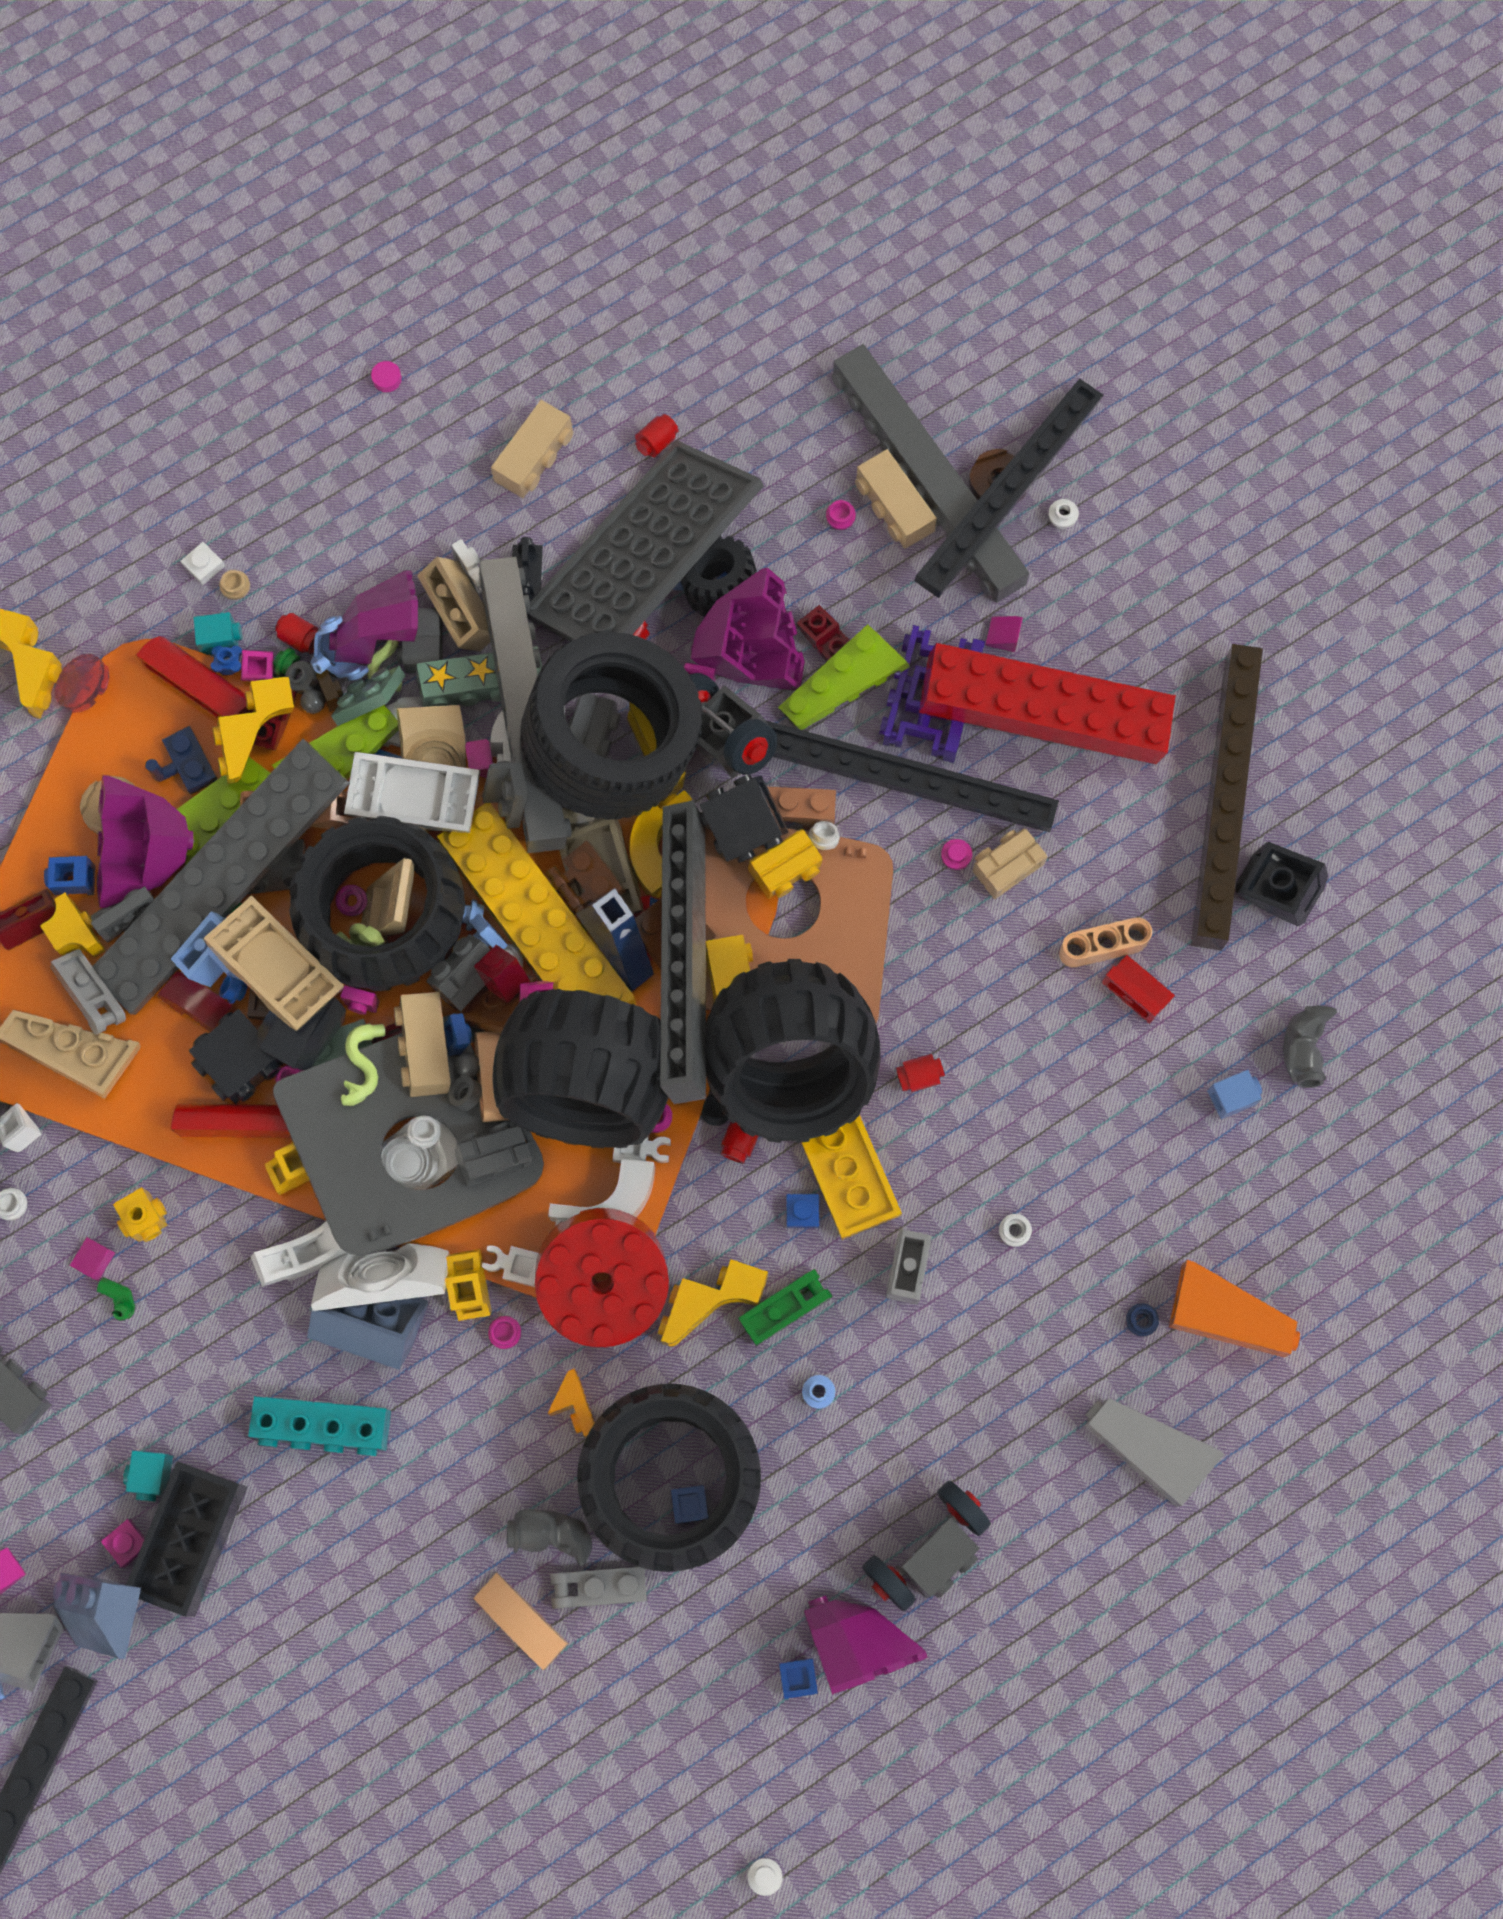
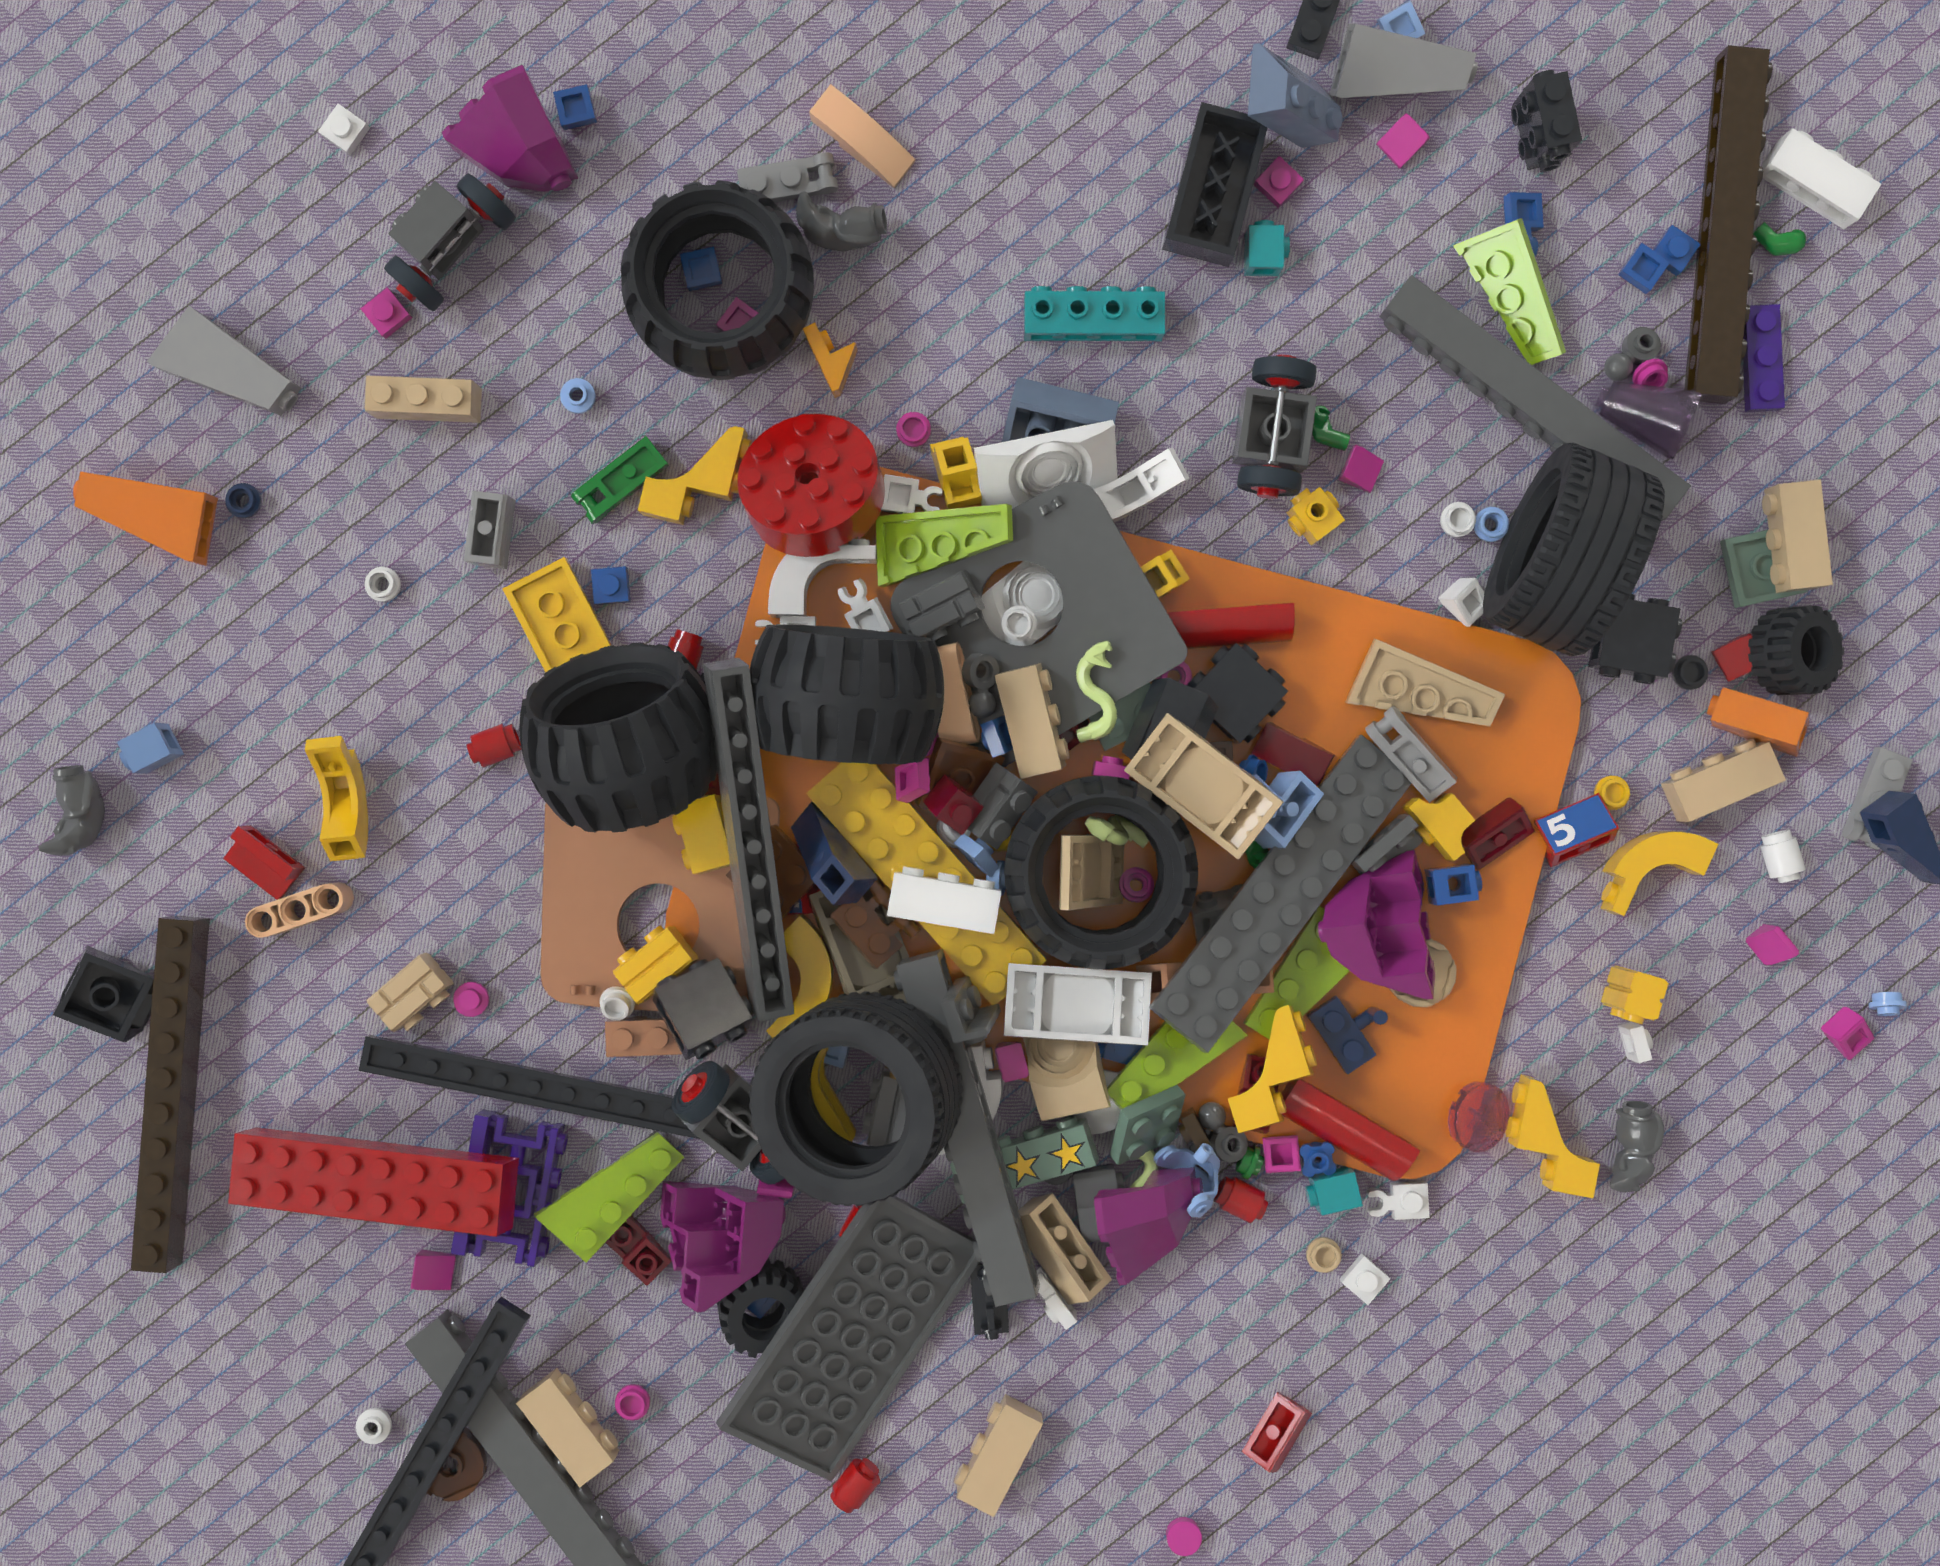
camera: 165 degrees right, 15 degrees up
(160, 622) = (1405, 1200): none -> white plate
(164, 1296) = (1275, 427): none -> brick
(297, 450) = (1276, 1432): none -> red slope
(494, 1218) = (931, 539): none -> lime wing
(518, 888) = (944, 900): none -> white brick
(567, 1159) = (864, 613): none -> white plate
(657, 1448) = (736, 315): none -> dark pink plate
(964, 1398) = (423, 399): none -> tan brick
(997, 1490) = (386, 313): none -> dark pink plate
(1028, 1678) = (344, 129): none -> white plate
(1060, 1032) = (343, 796): none -> yellow arch

